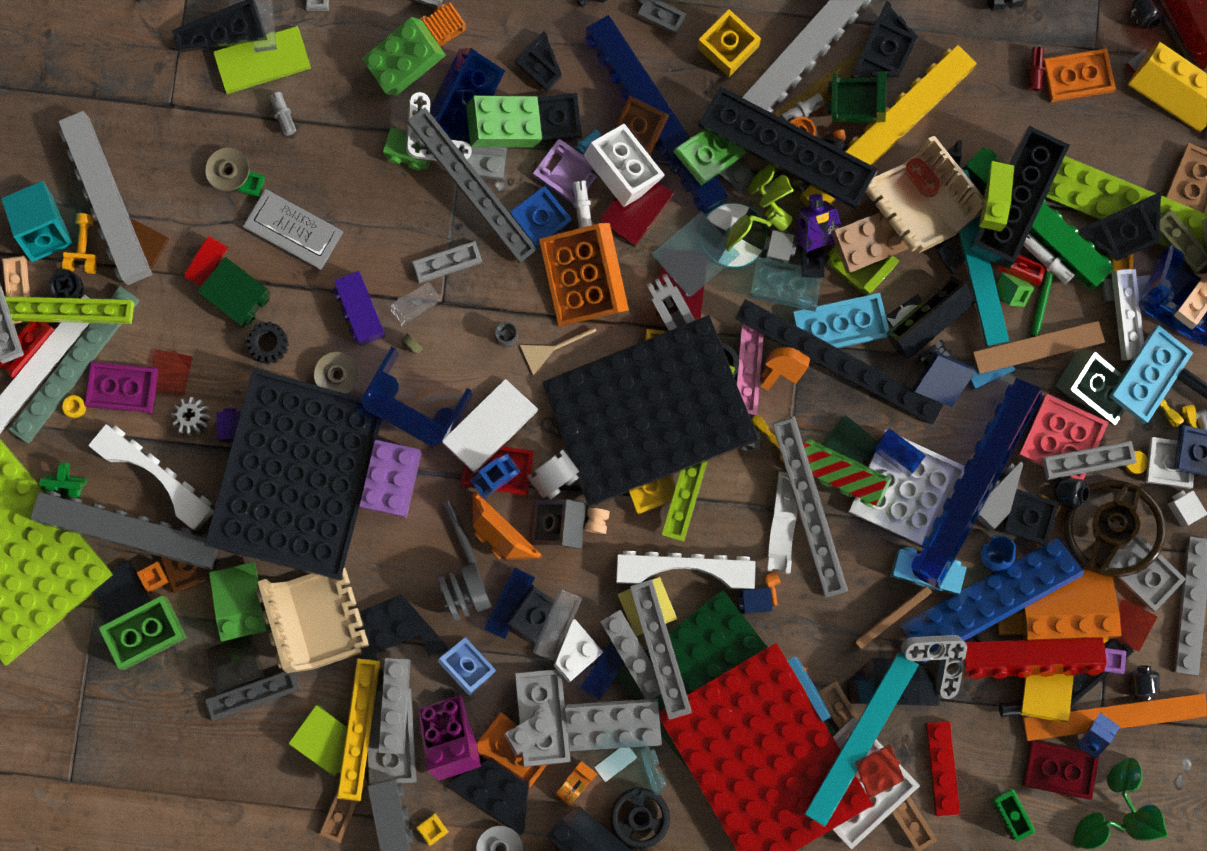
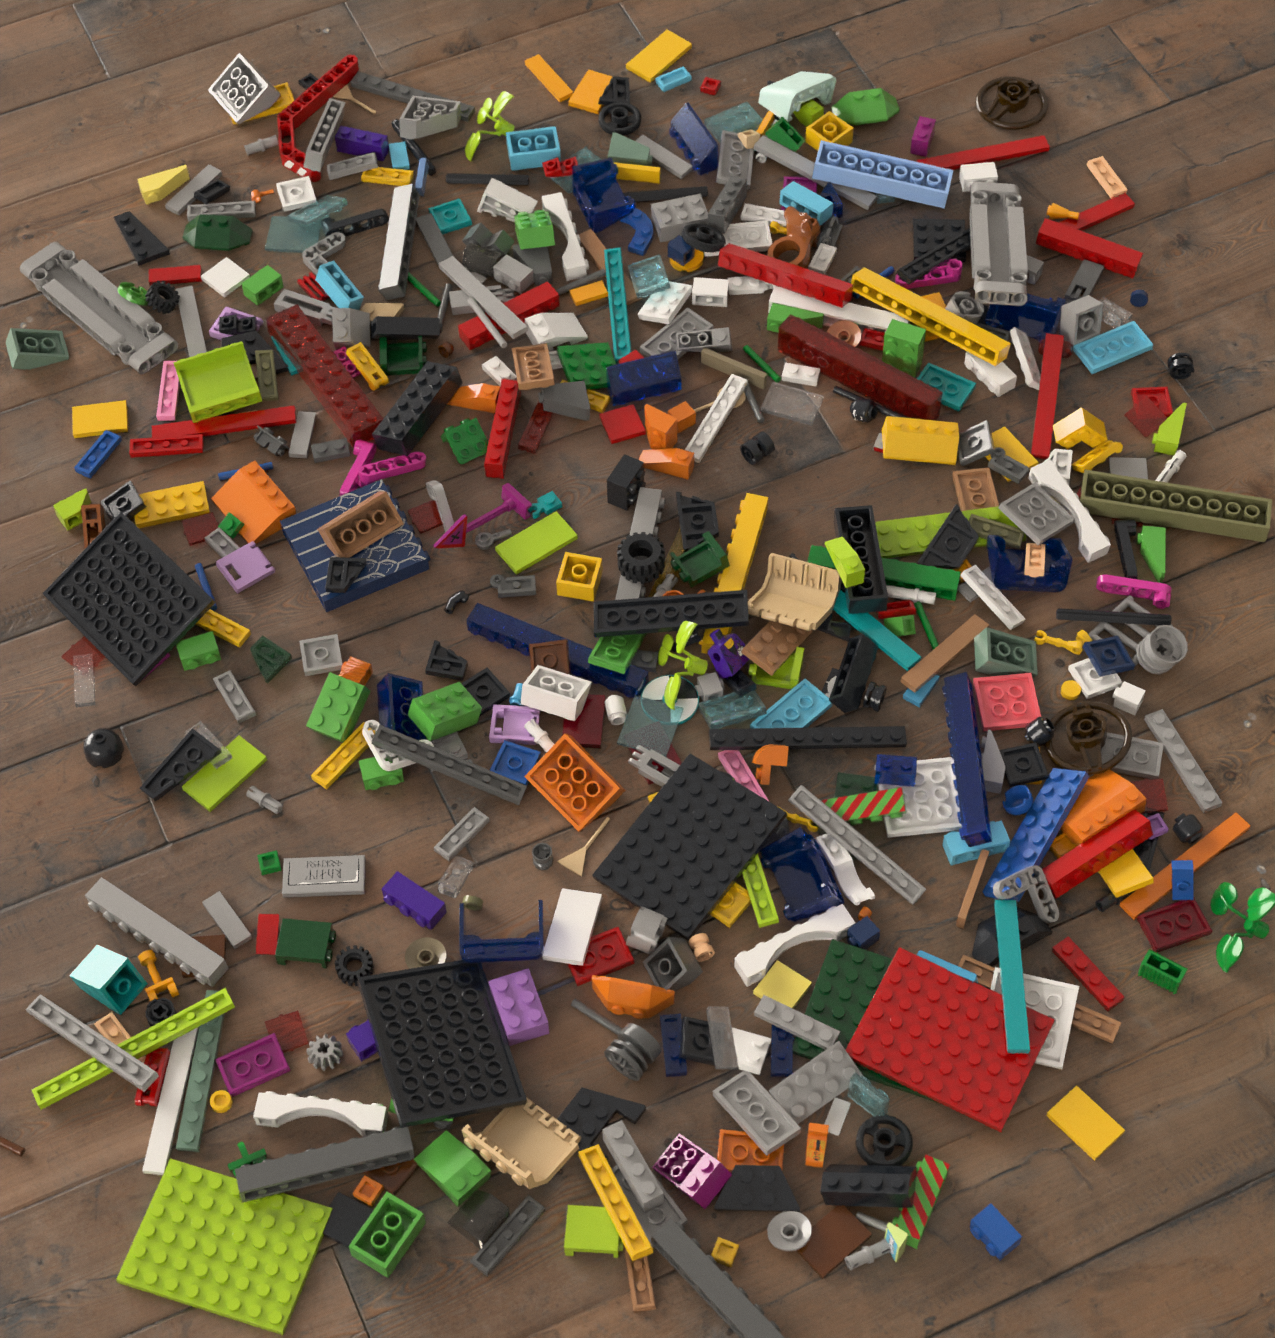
camera: 25 degrees left, 25 degrees down
(179, 222) = (227, 920): none -> light grey tile
(218, 165) = (239, 855): dark tan dish -> none
(380, 111) = (341, 758): none -> yellow plate
(467, 666) = (669, 1112): medium blue slope -> none
(495, 475) = (600, 955): blue brick -> none
(530, 732) = (755, 1119): light grey brick -> none
(661, 649) = (815, 1004): light grey plate -> none
(673, 215) = (616, 709): none -> white brick
(739, 507) = (802, 875): none -> clear blue windscreen
(803, 46) = (641, 545): none -> black tyre
(879, 771) = (1041, 989): clear red piece -> none
(926, 174) = (782, 585): clear red beam -> none
(944, 379) = (892, 706): dark blue tile -> none
(1036, 69) = (813, 483): dark red axle -> none
(1078, 75) = (845, 472): orange tile -> none
(1089, 460) = (1035, 703): light grey tile -> none
(1151, 374) = (1037, 625): medium azure plate -> none

